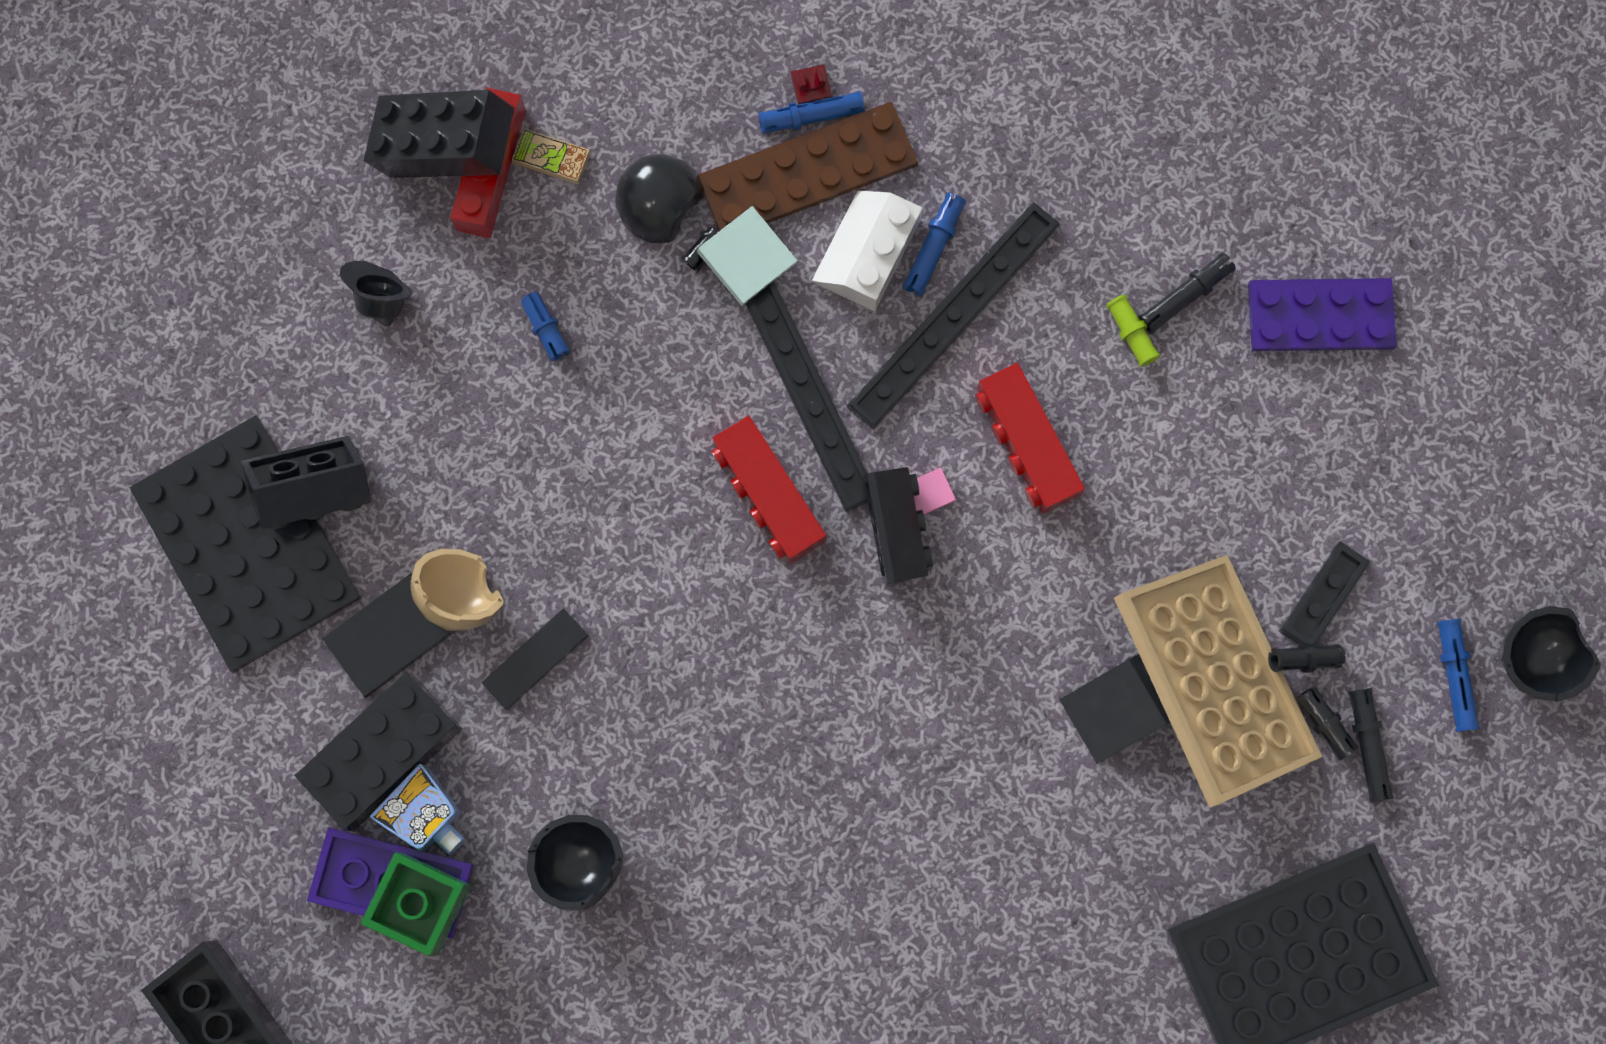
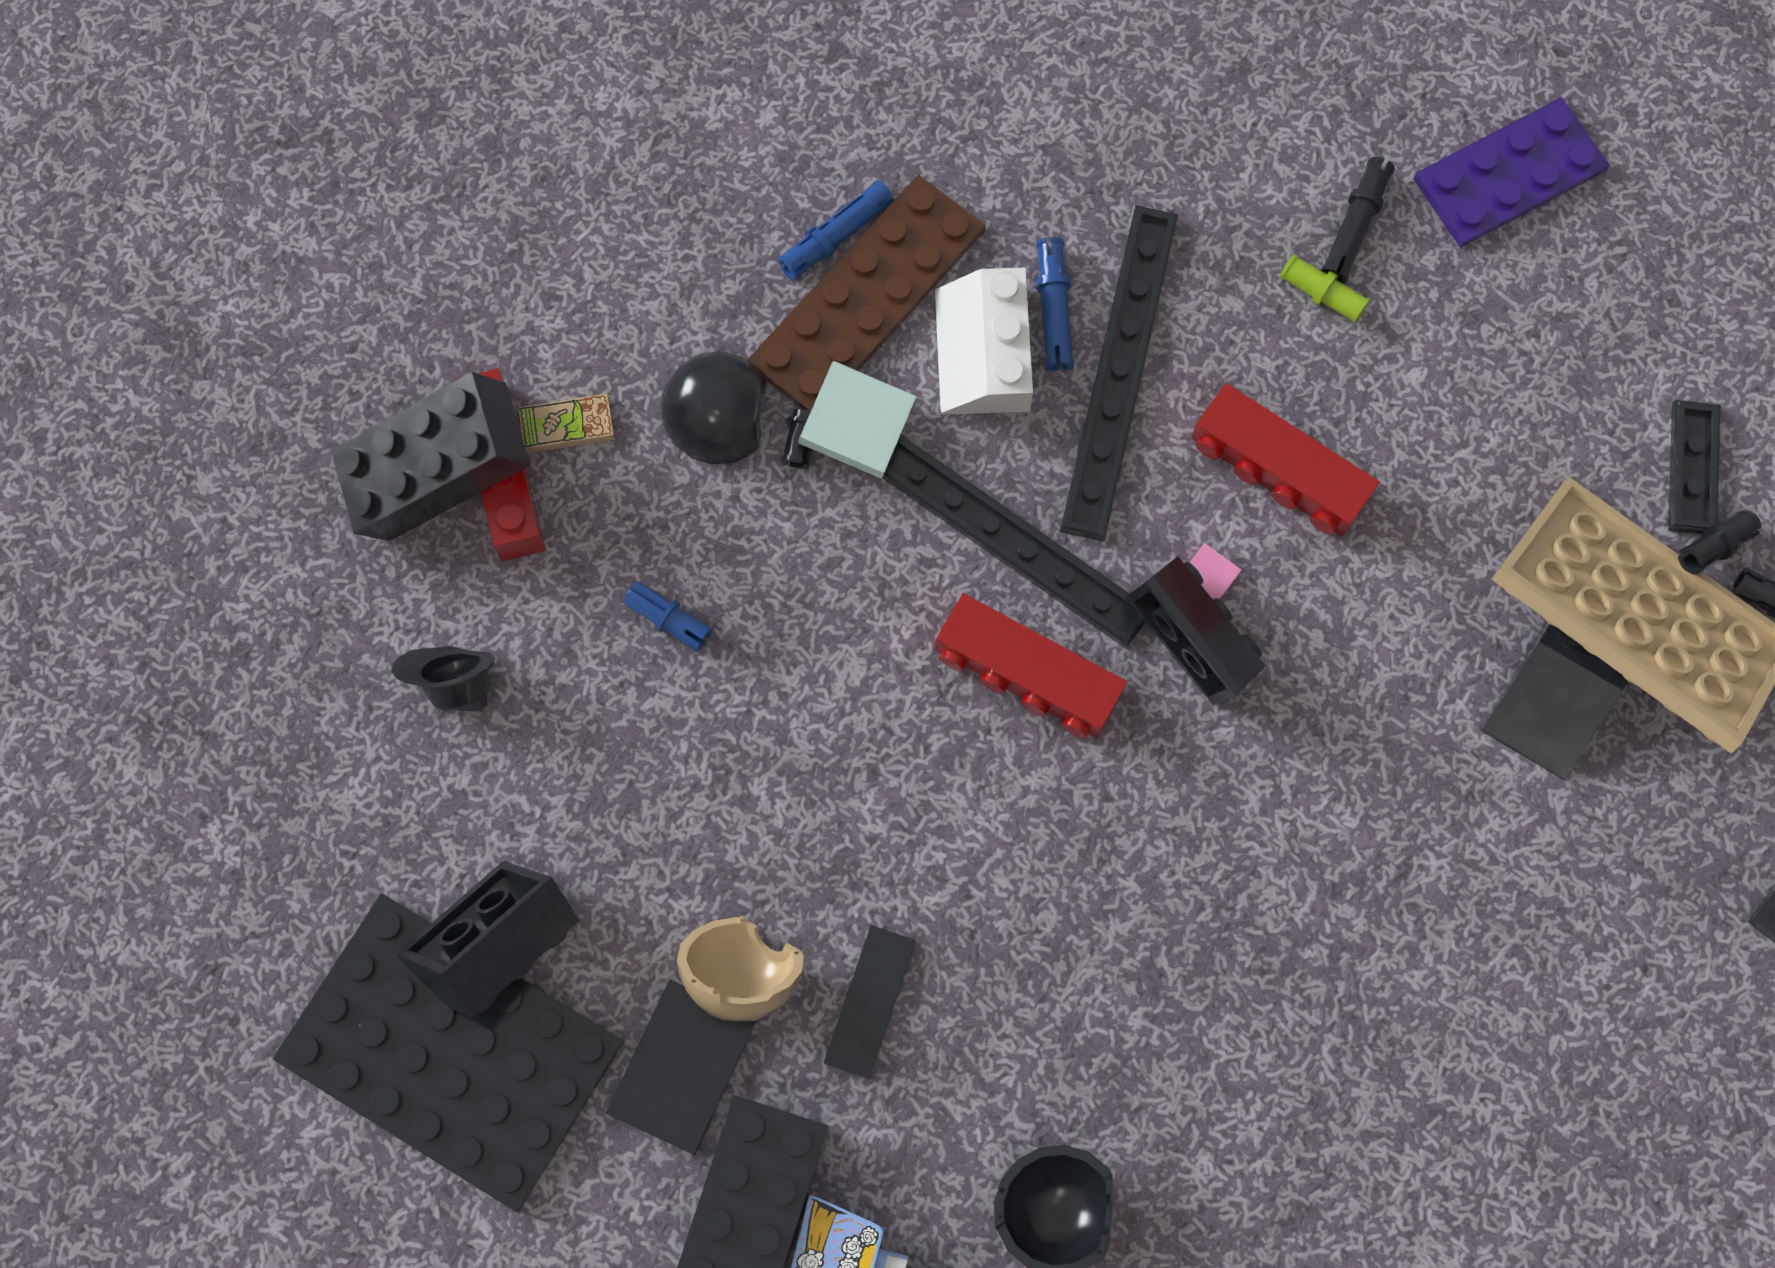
camera: 30 degrees left, 5 degrees down
(811, 84) = (817, 200): dark red tile -> none

